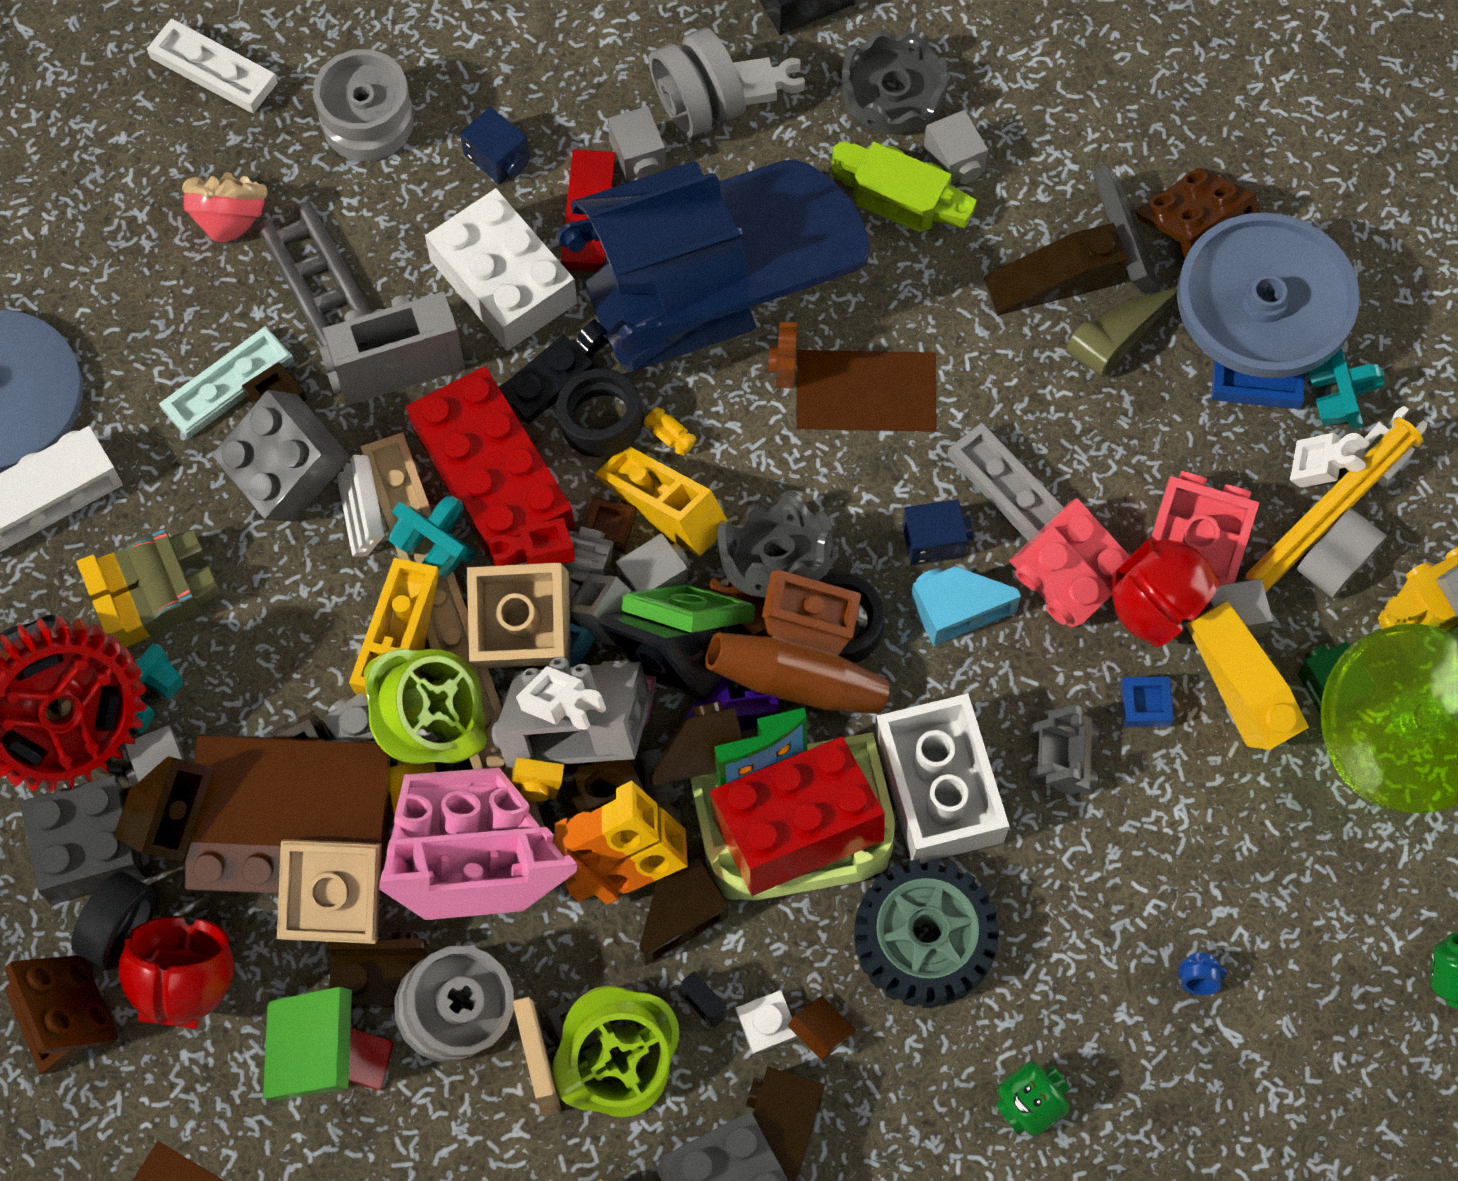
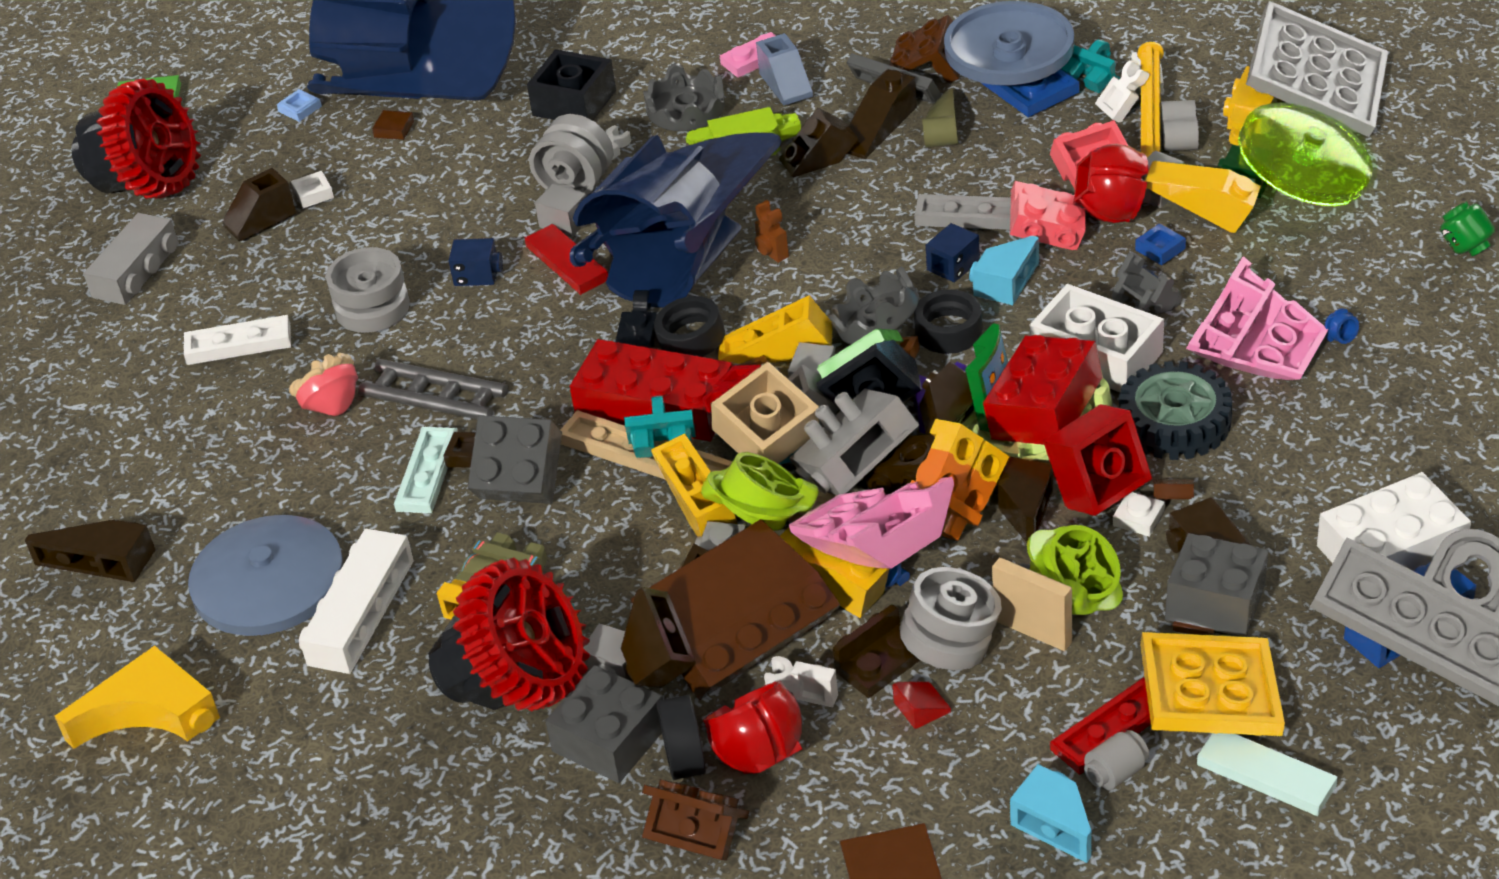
camera: 35 degrees left, 25 degrees down
(289, 954) = (806, 681): none -> white plate
(307, 1044) = (882, 708): bright green tile -> none
(329, 891) = (809, 610): tan tile -> none
(360, 505) = (568, 450): white tile -> none
(392, 348) = (528, 367): light grey piece -> none
(501, 269) = (548, 306): white brick -> none
(537, 779) = (867, 478): yellow plate -> none
(559, 695) = (843, 417): white plate -> none
(669, 431) = (740, 313): yellow piece -> none
(703, 1000) = (1093, 516): black tile -> none
(767, 942) = (1097, 459): none -> red brick
(800, 657) = (945, 326): dark orange plate -> none
(866, 390) = (834, 231): reddish brown piece -> none
(956, 147) = (754, 96): light grey brick -> none
(958, 263) = (819, 144): none -> dark brown slope
(1025, 125) = (783, 69): none -> sand blue slope
(1033, 1098) = (1328, 432): green head -> none
(1035, 66) = (743, 58): none -> bright pink plate
(1106, 907) = (1258, 329): none -> bright pink wedge

